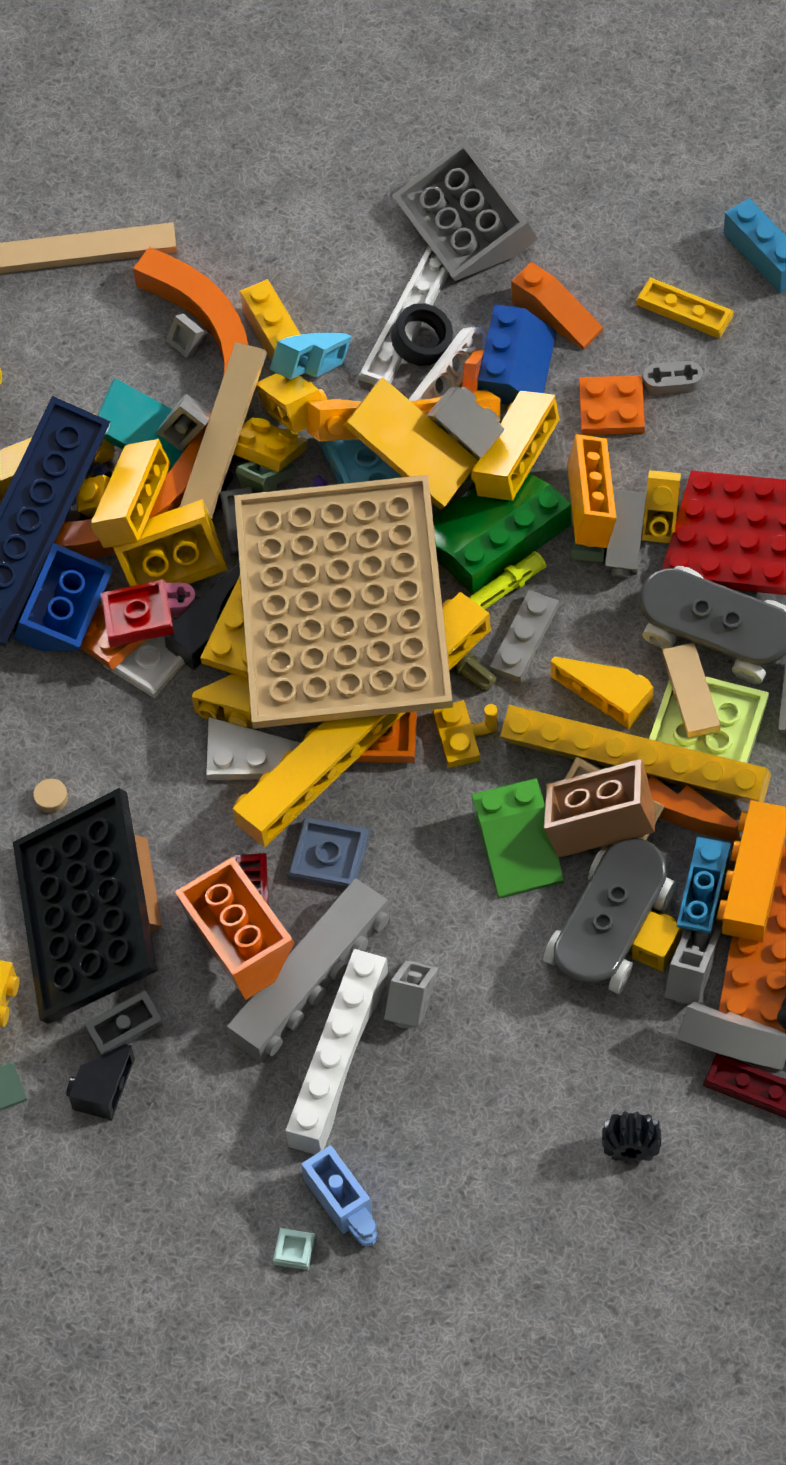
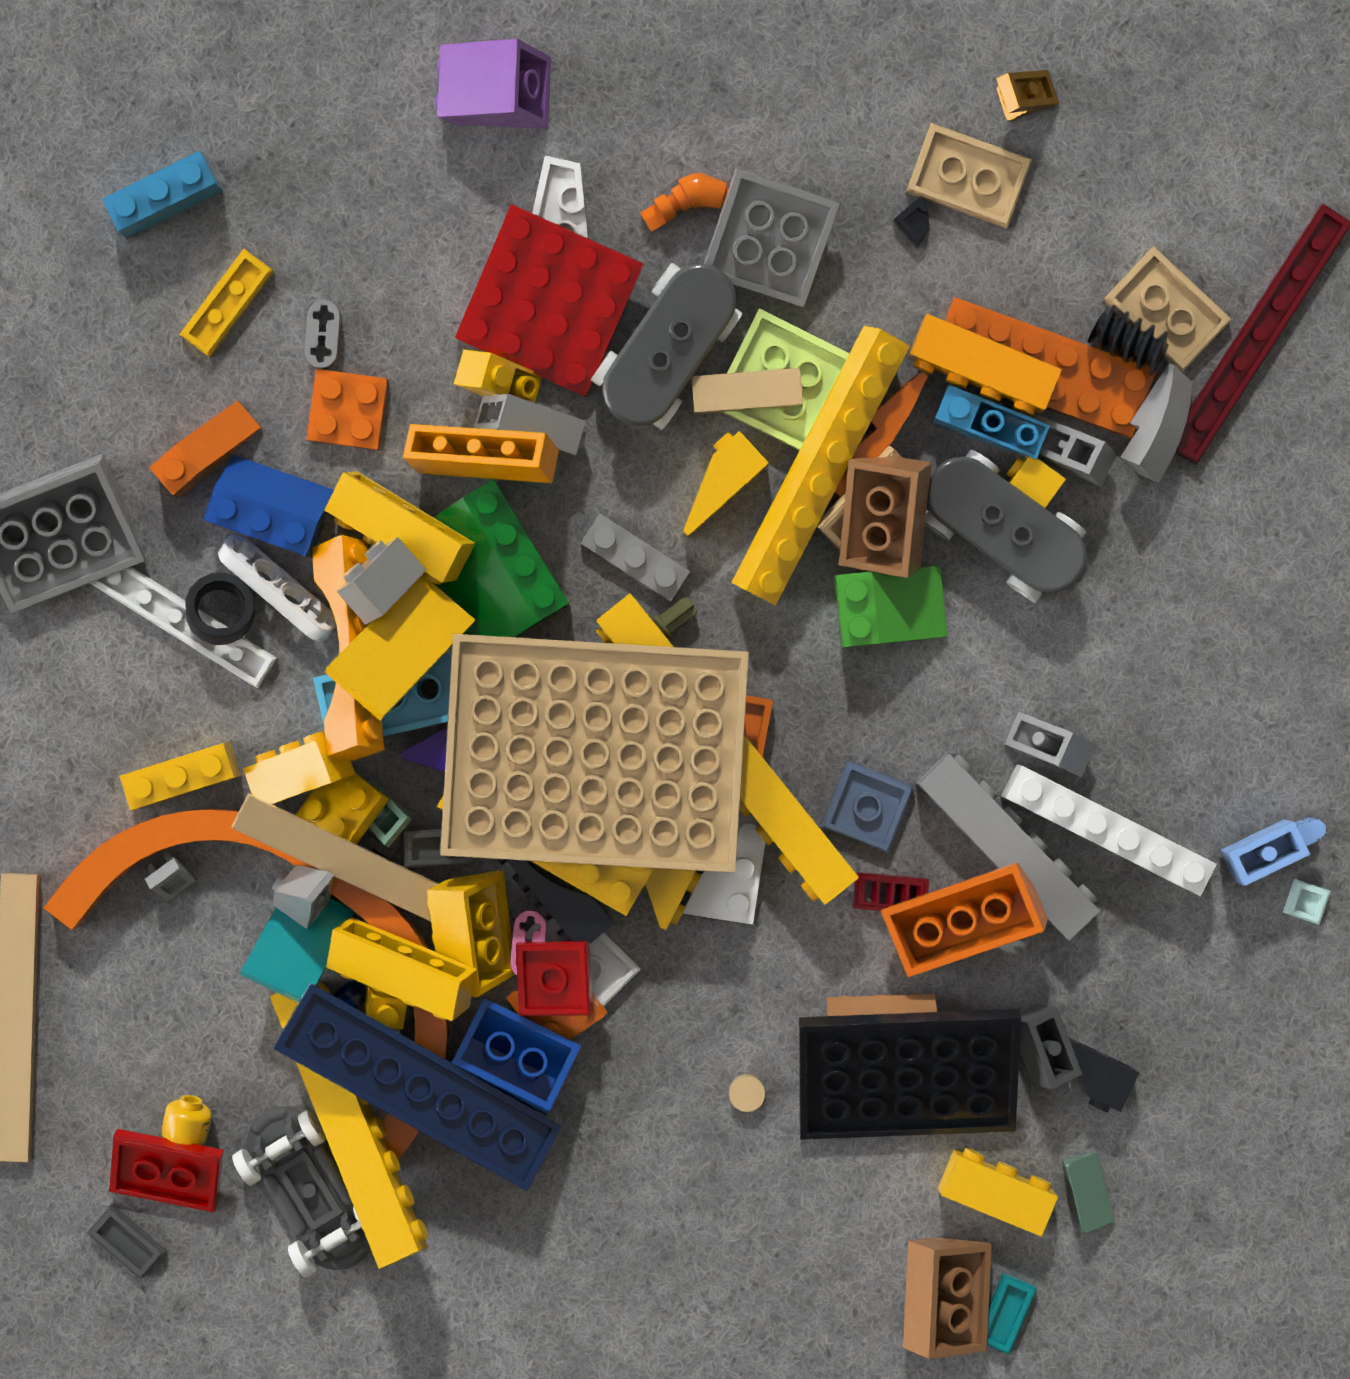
camera: 90 degrees left, 30 degrees up
(309, 354) = (240, 742): medium azure slope -> none
(459, 735) = (763, 646): yellow plate -> none
(471, 370) = (290, 558): orange tile -> none
(512, 578) = (565, 564): neon yellow pin -> none
(631, 1137) = (1257, 547): black gear -> none

